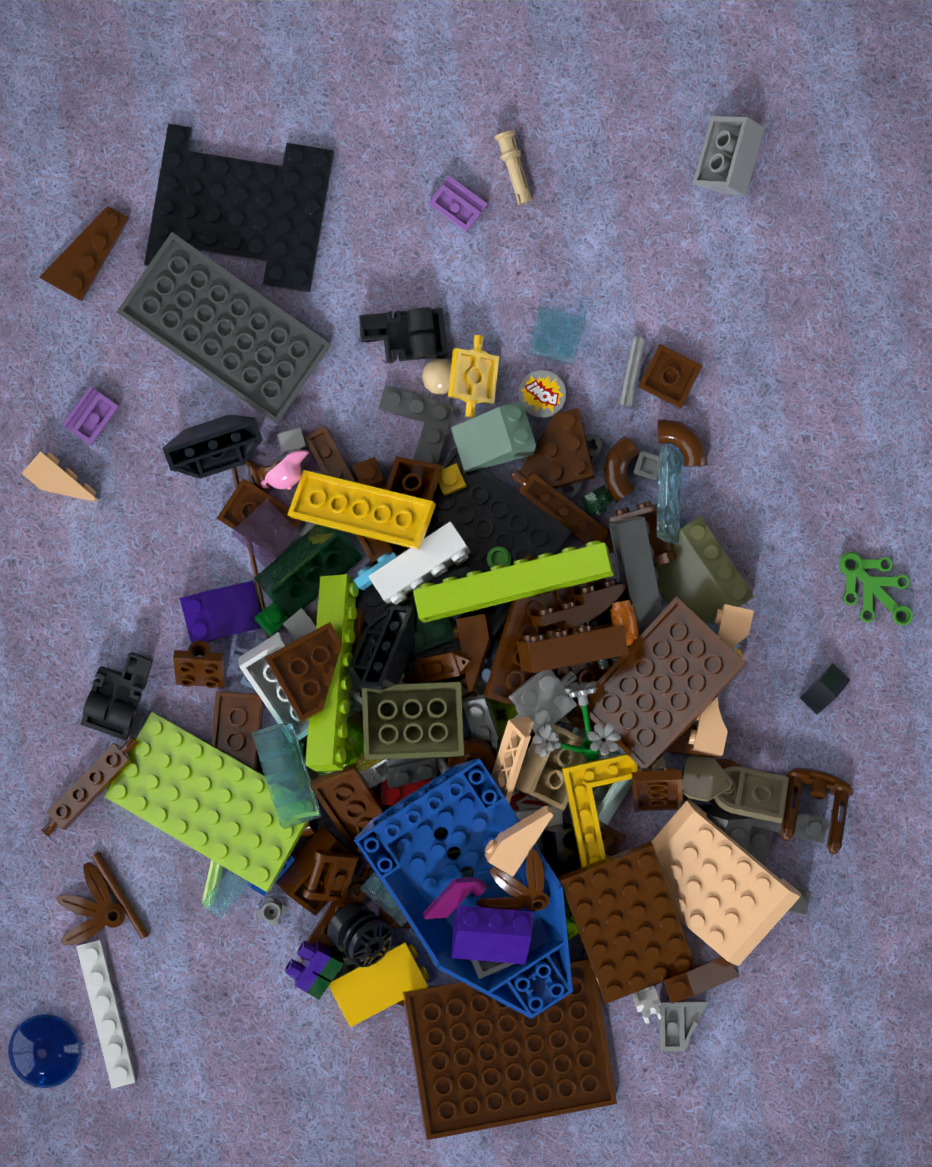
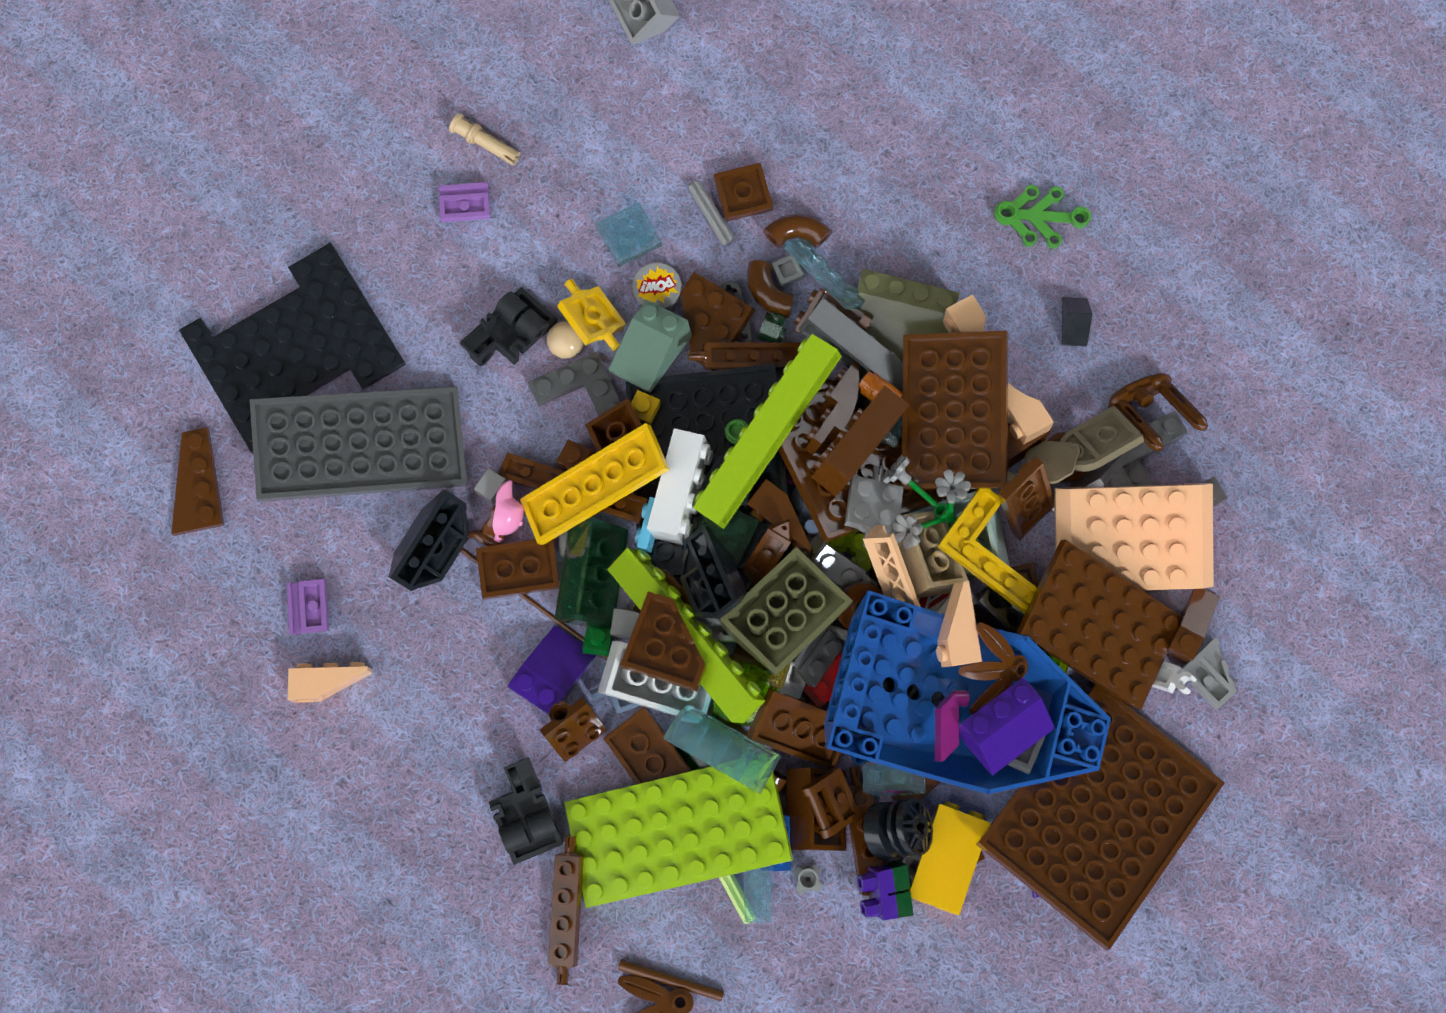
camera: 40 degrees left, 10 degrees down
(265, 533) = (532, 574): clear purple plate -> none

